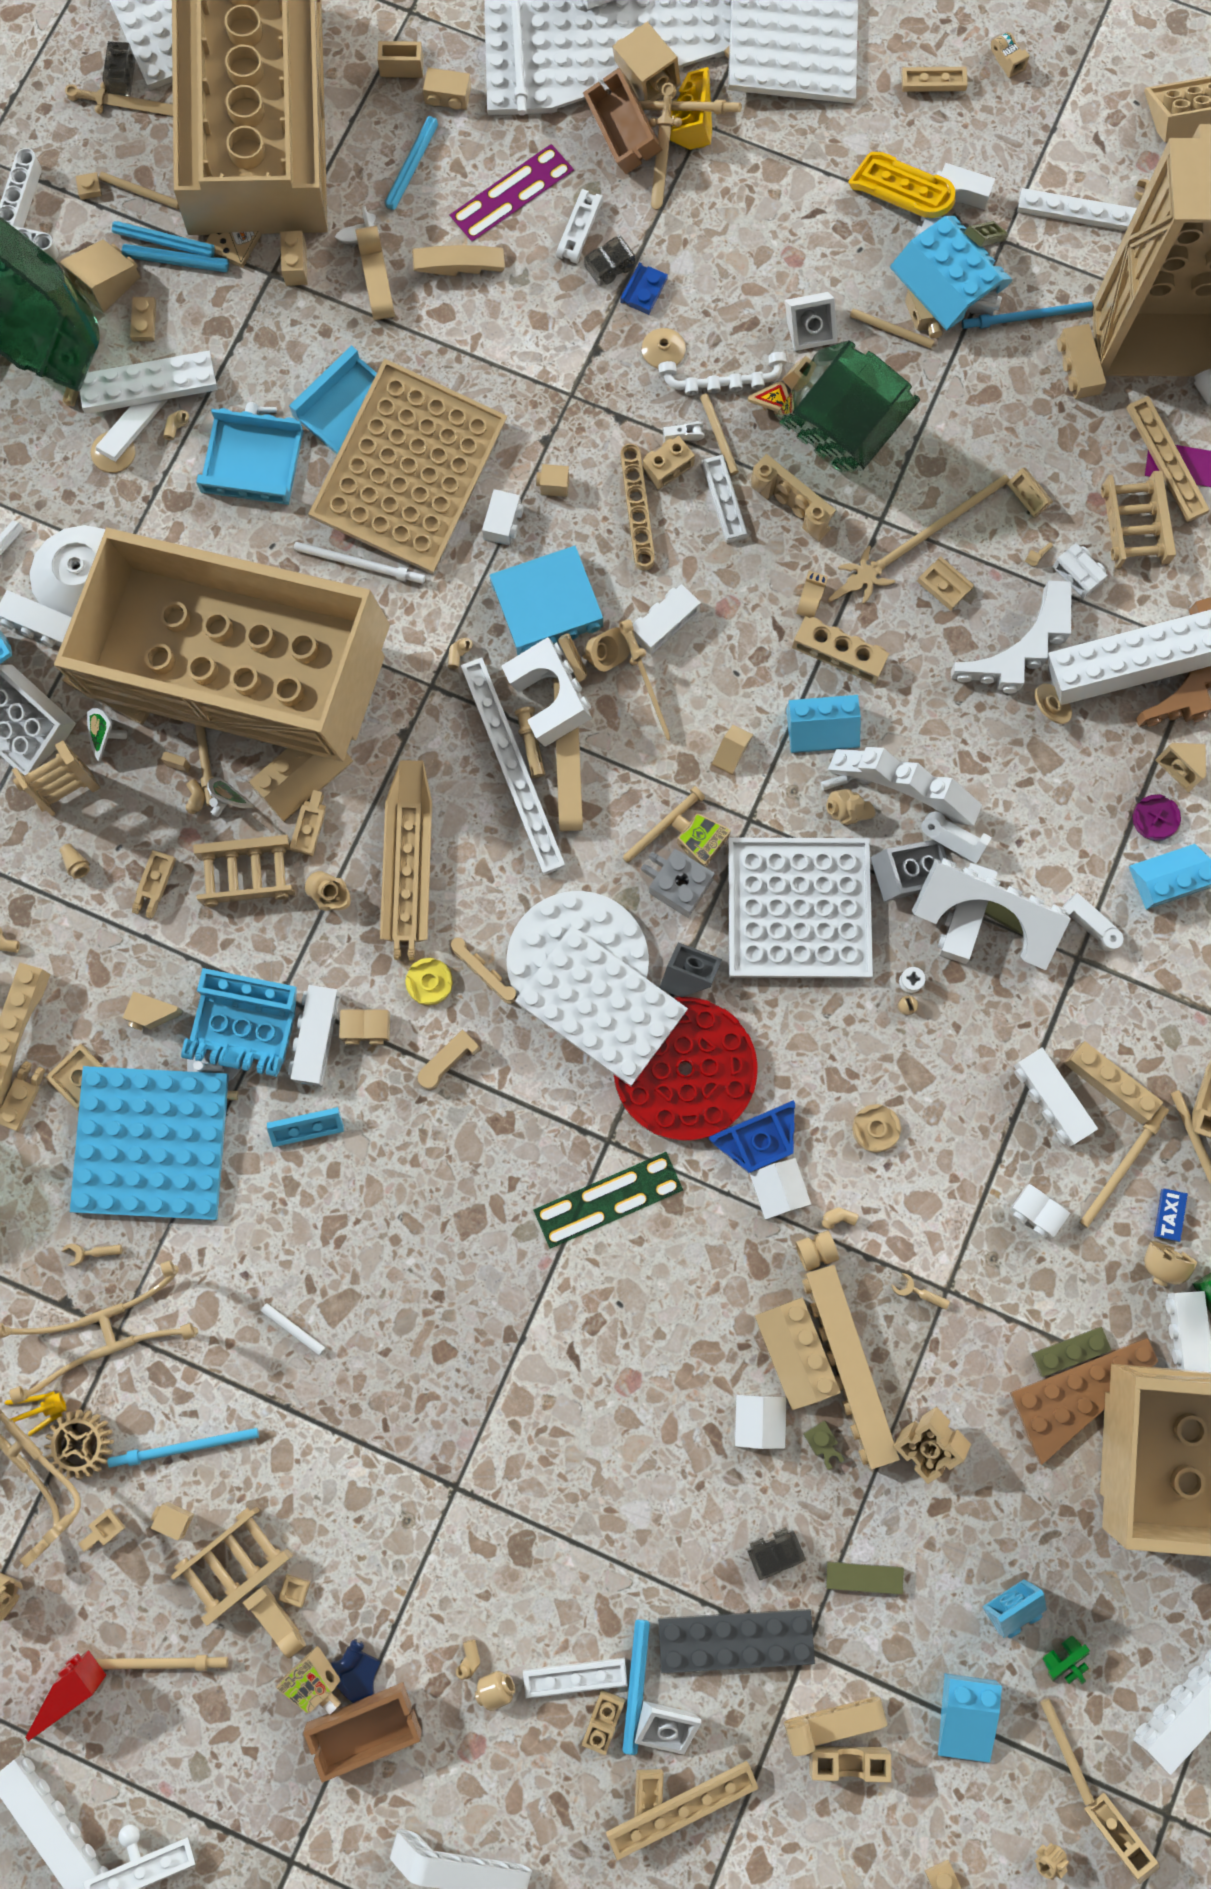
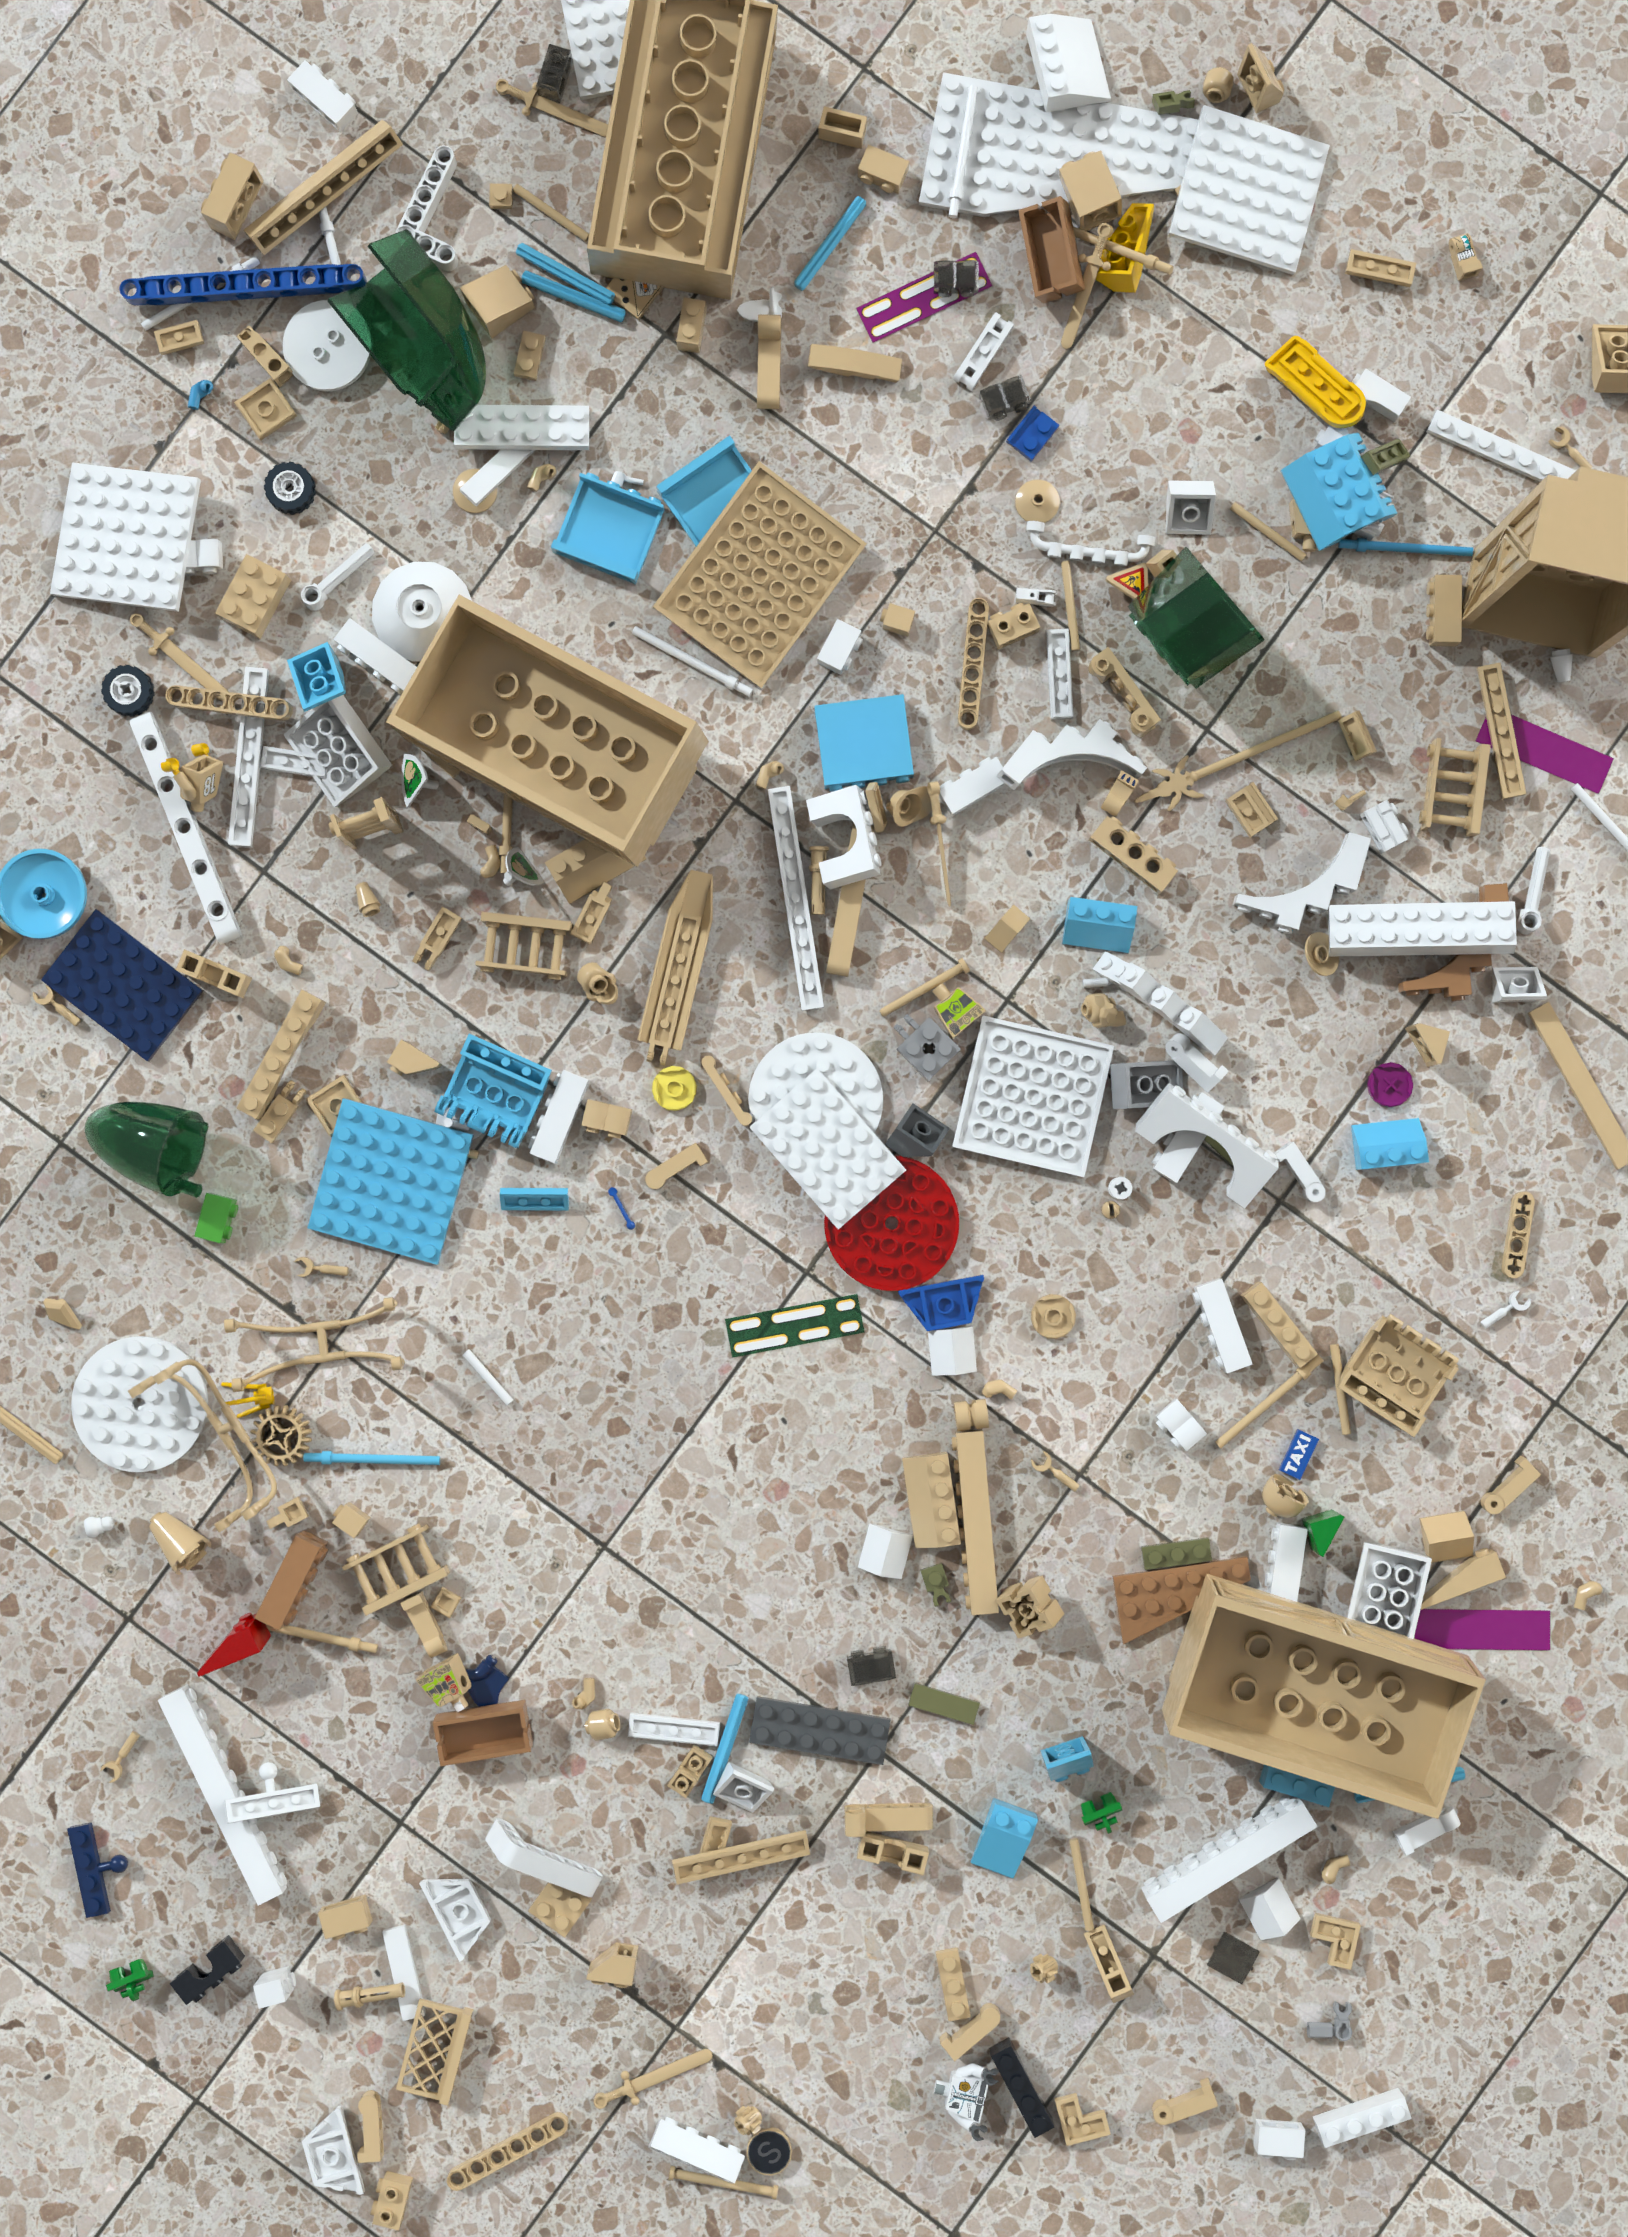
camera: 15 degrees right, 10 degrees up
(117, 1605) = (291, 1580): none -> medium nougat piece
(387, 1102) = (613, 1192): none -> blue hinge
(537, 166) = (956, 277): none -> clear smoke brick
(749, 560) = (1070, 745): none -> white arch

